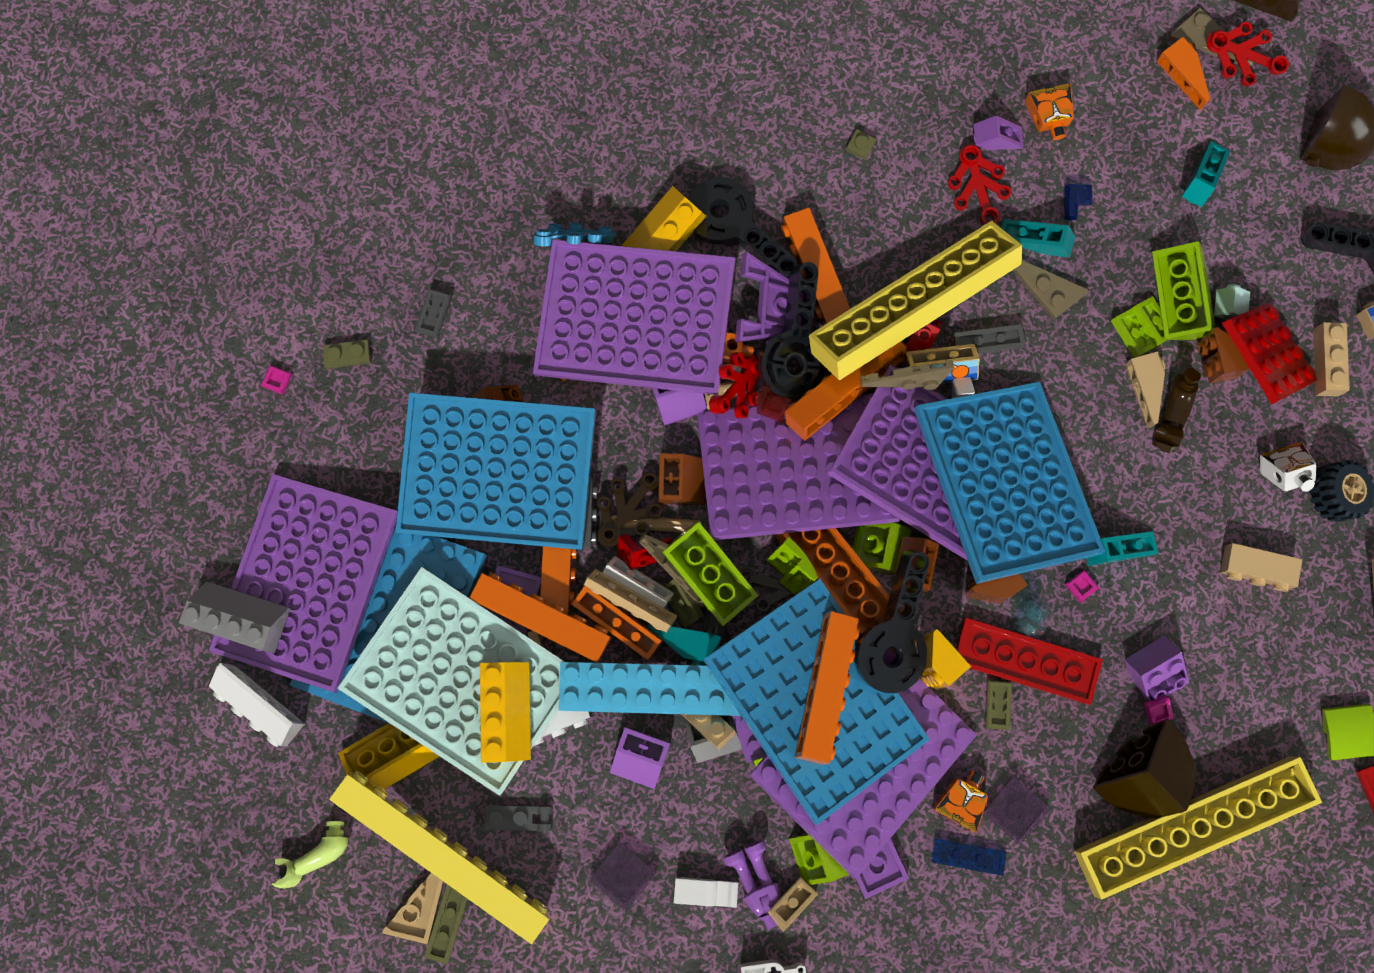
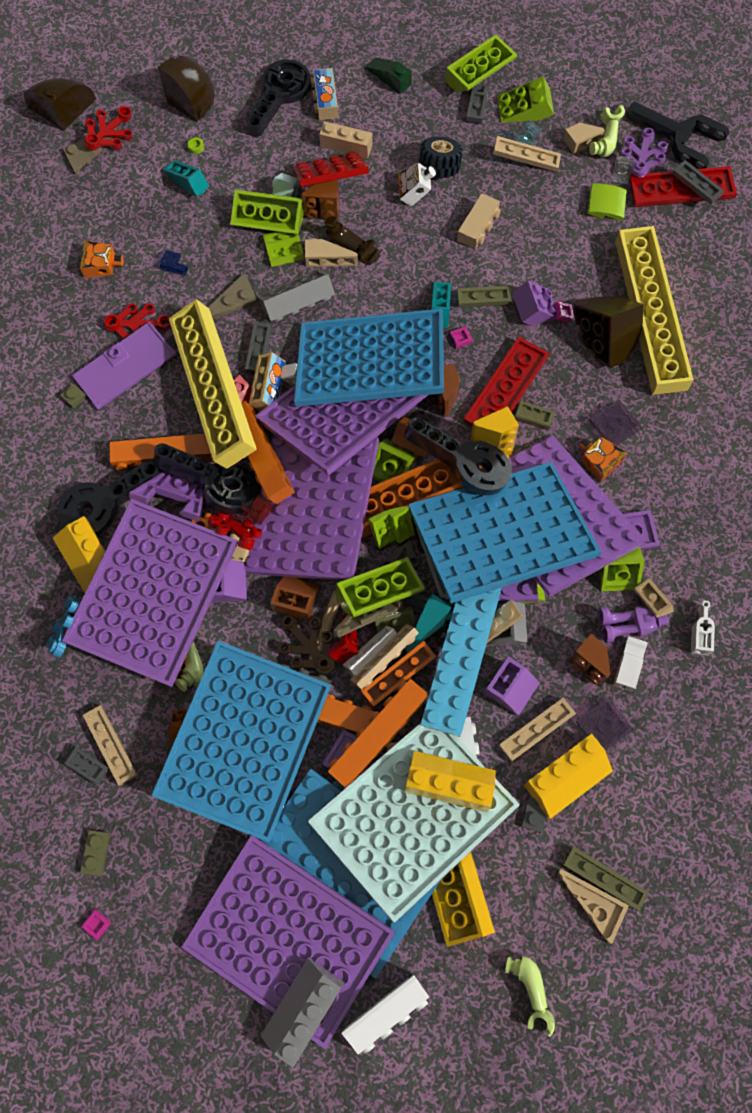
camera: 75 degrees left, 10 degrees down
(440, 856) = (555, 872): light yellow brick -> none
(461, 330) = (110, 745): none -> tan plate
(553, 847) = (569, 776): none -> yellow slope
(565, 392) = (193, 670): none -> yellowish green piece
(599, 798) = (537, 729): none -> tan plate
(696, 844) = (592, 660): none -> dark orange slope
(827, 688) = (497, 517): orange brick -> none
(911, 377) = (271, 400): dark tan wing -> none
(918, 189) = (124, 365): none -> medium lavender door
(968, 856) = (642, 466): clear blue tile -> none
(998, 134) = (103, 300): medium lavender slope -> none
(1031, 619) = (476, 375): clear light blue bracket -> none
(1041, 237) = (195, 287): teal slope -> none
(1077, 363) = (296, 295): none -> light grey slope
(1149, 601) = (484, 296): none -> olive plate
(1184, 67) = (105, 168): orange slope -> none
(1260, 170) = (195, 145): none -> lime tile

